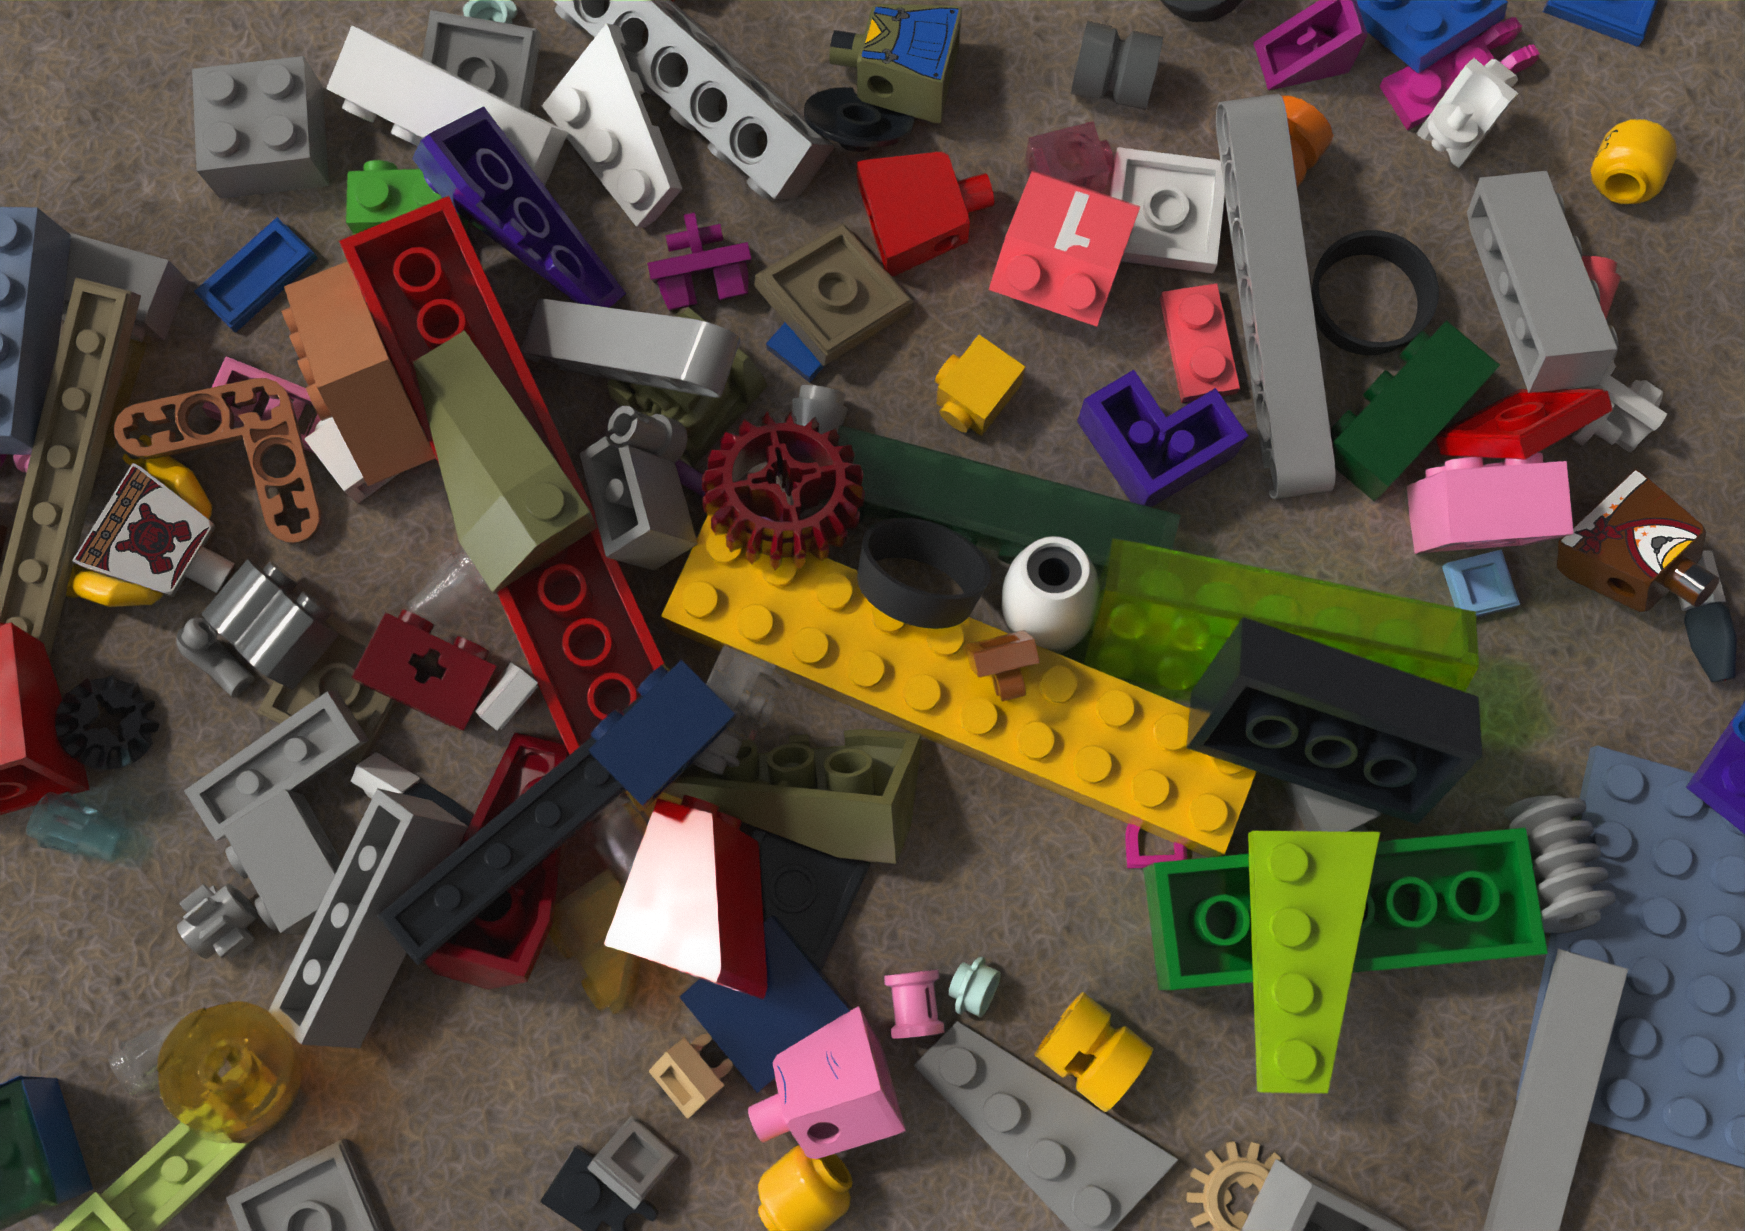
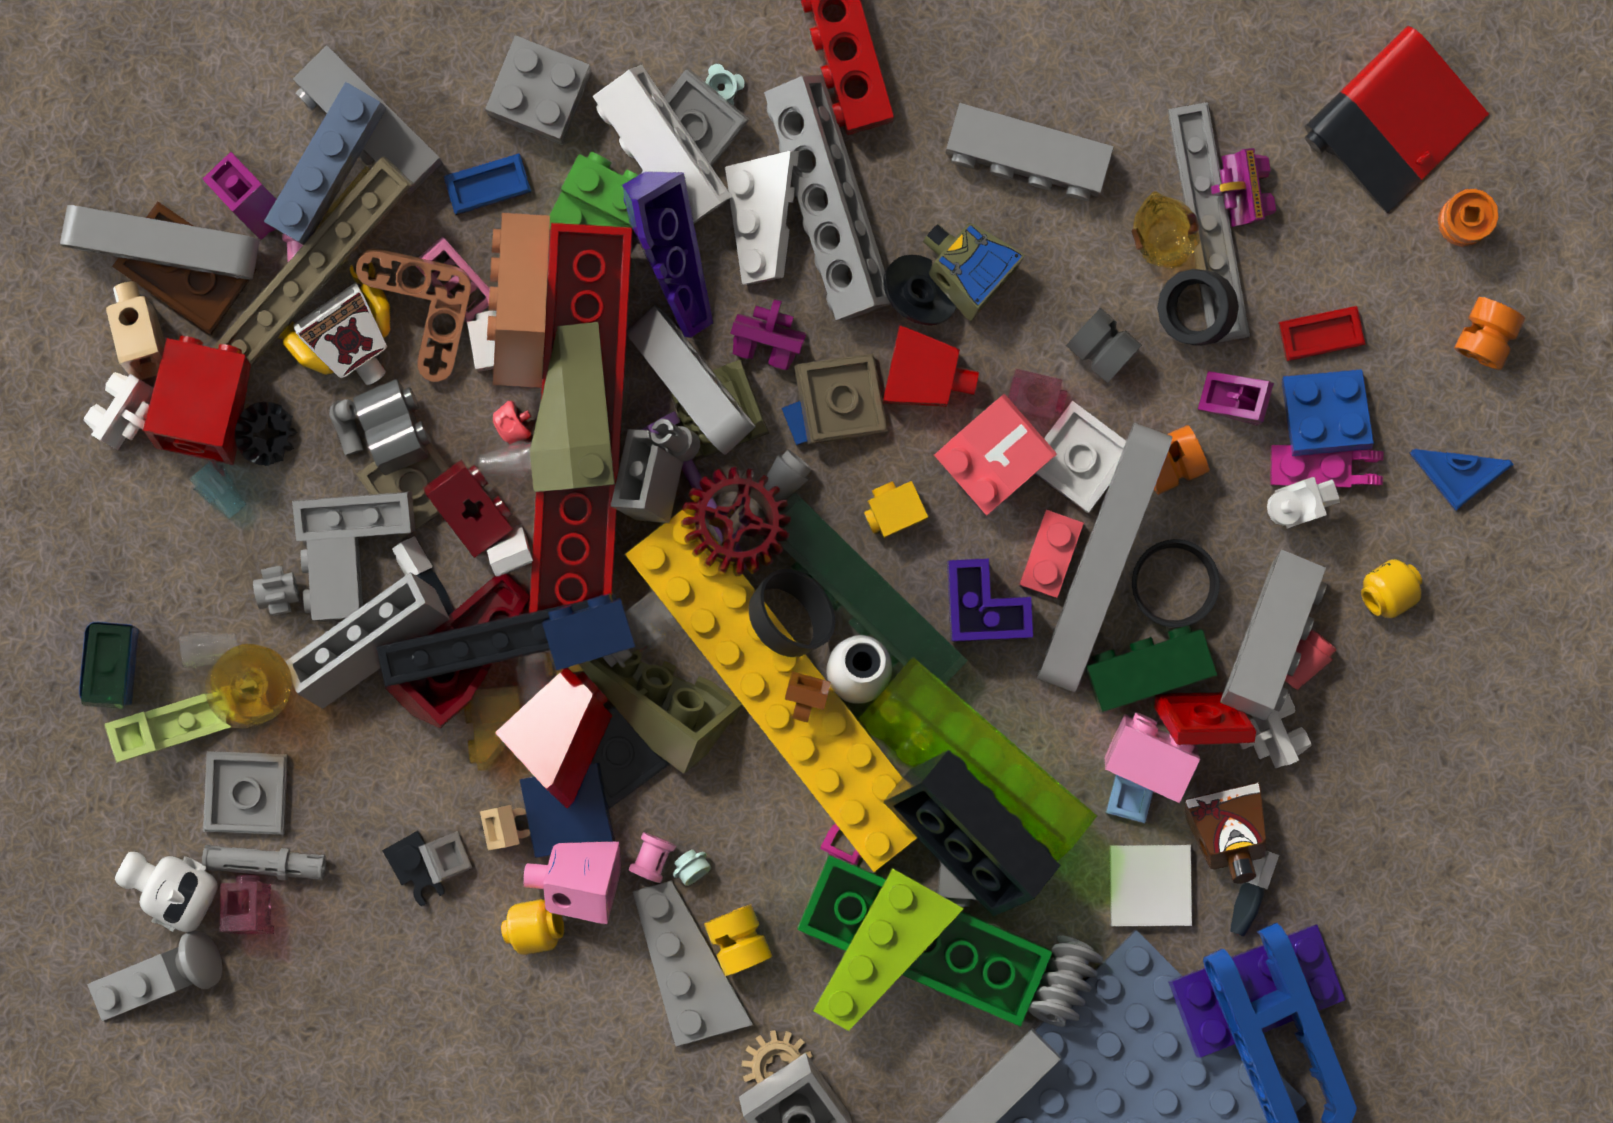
camera: 25 degrees right, 10 degrees up
(429, 542) = (510, 423): none -> coral piece
(1575, 680) = (1150, 885): none -> white tile

